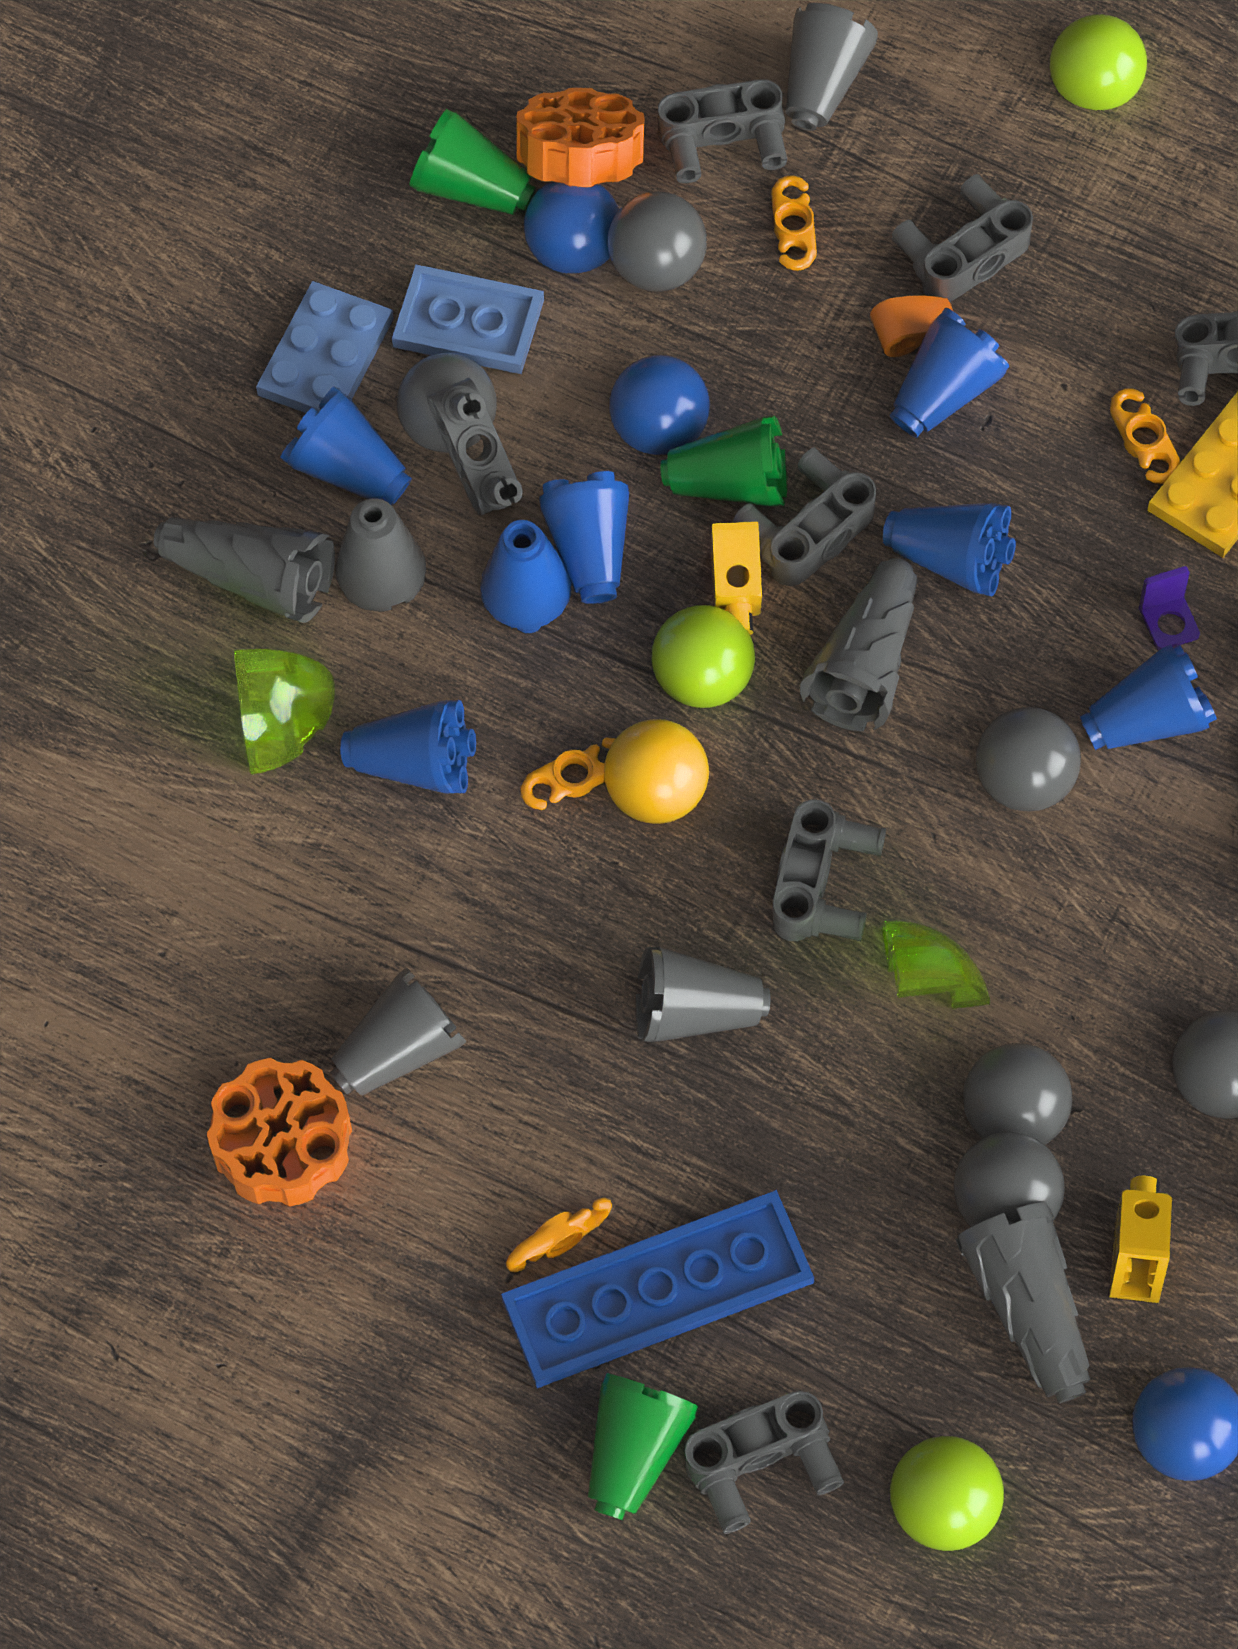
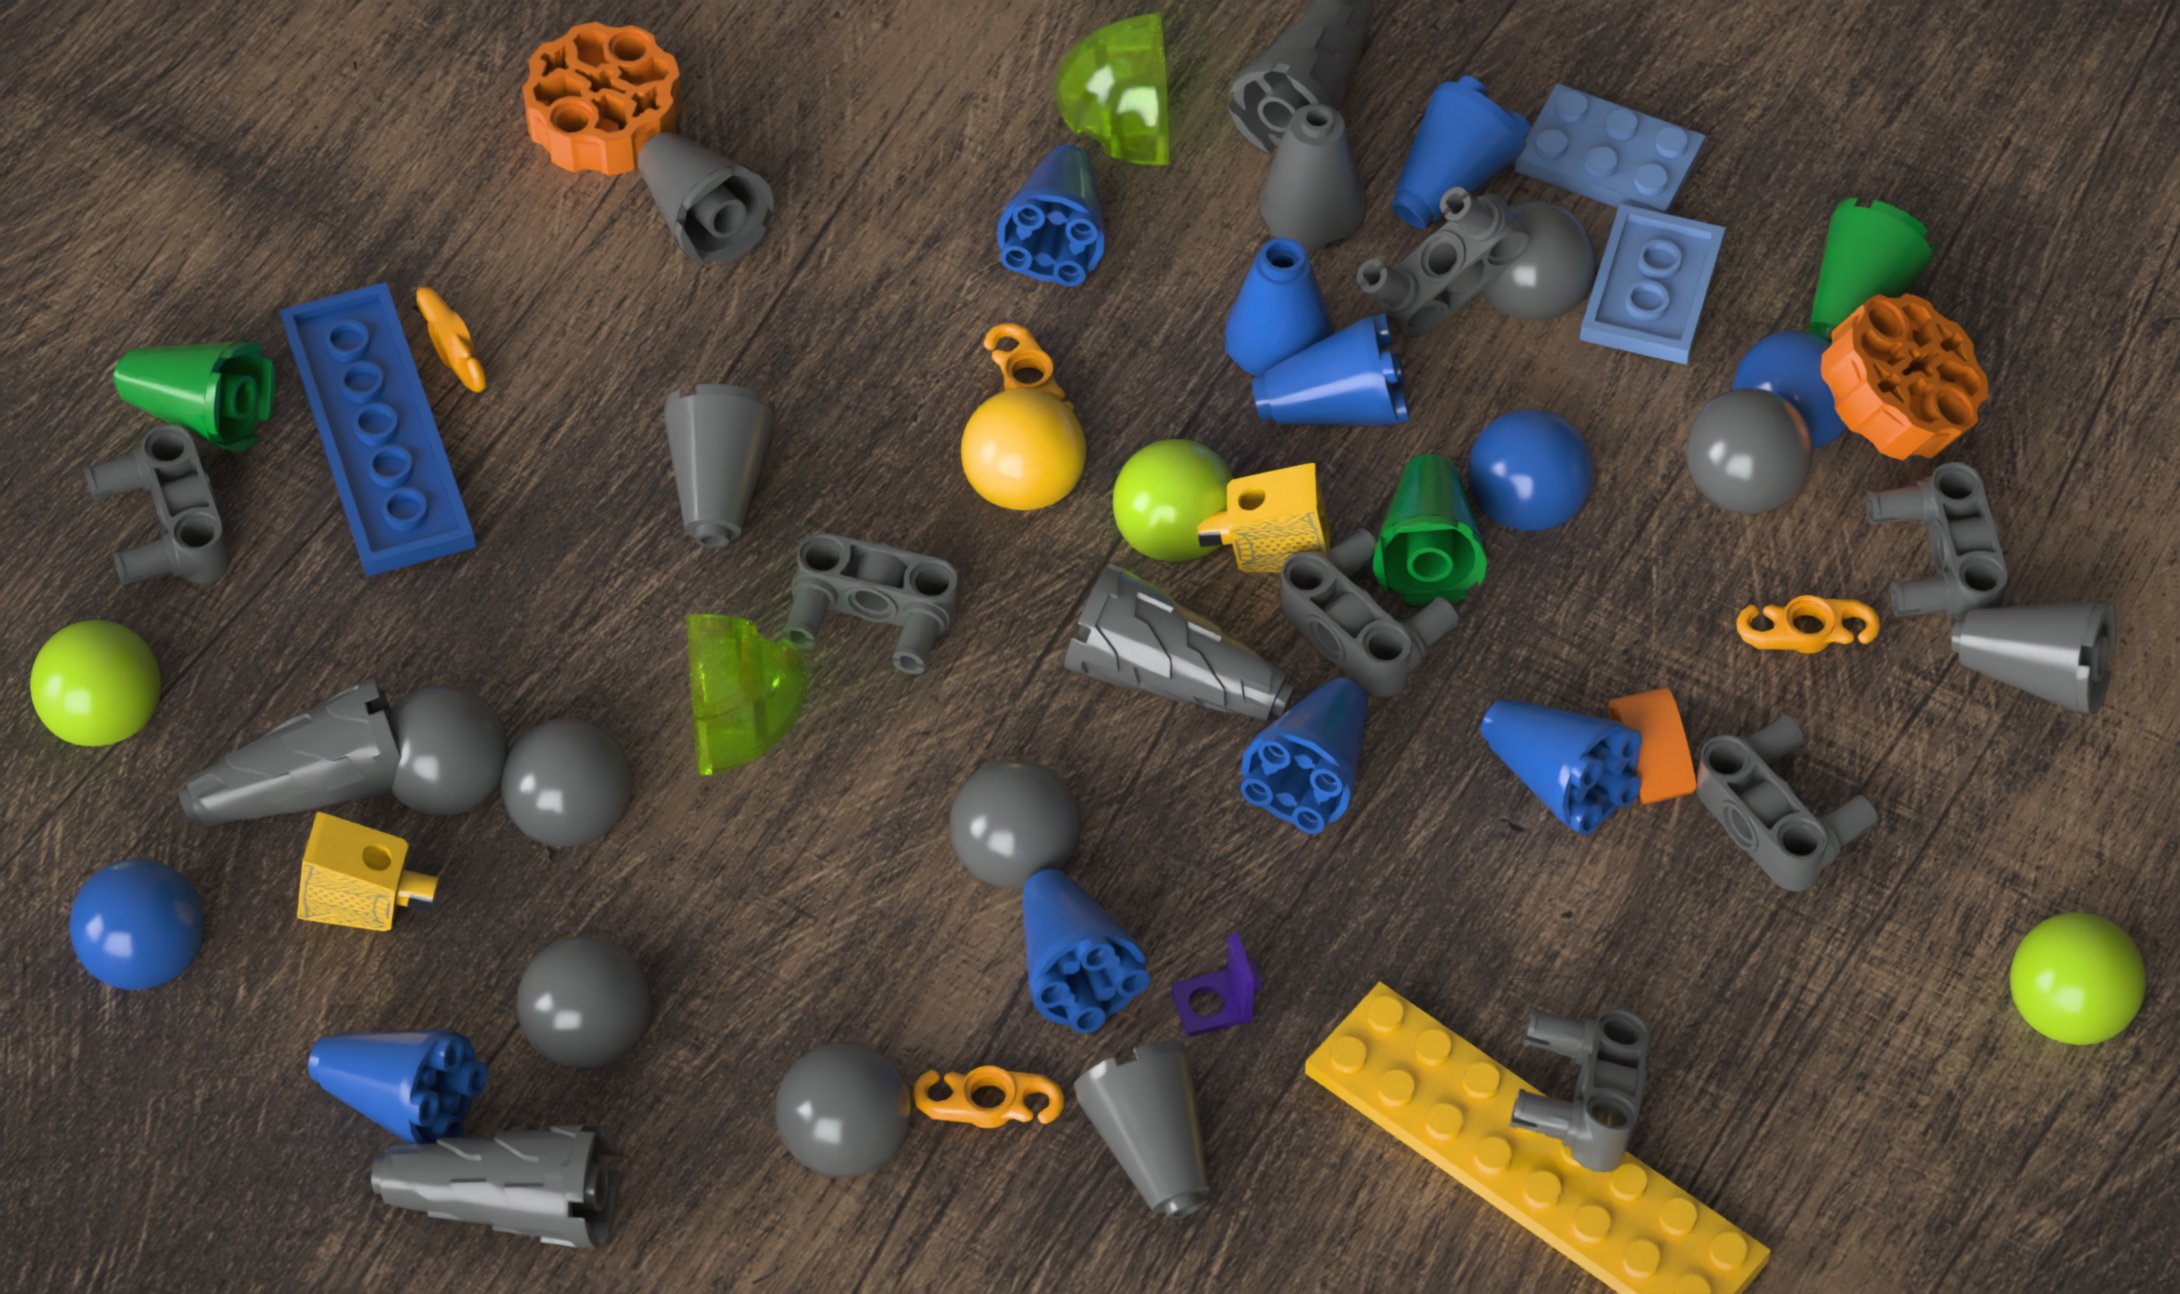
camera: 90 degrees right, 10 degrees down
(1129, 422) = (1502, 972): light orange piece -> none

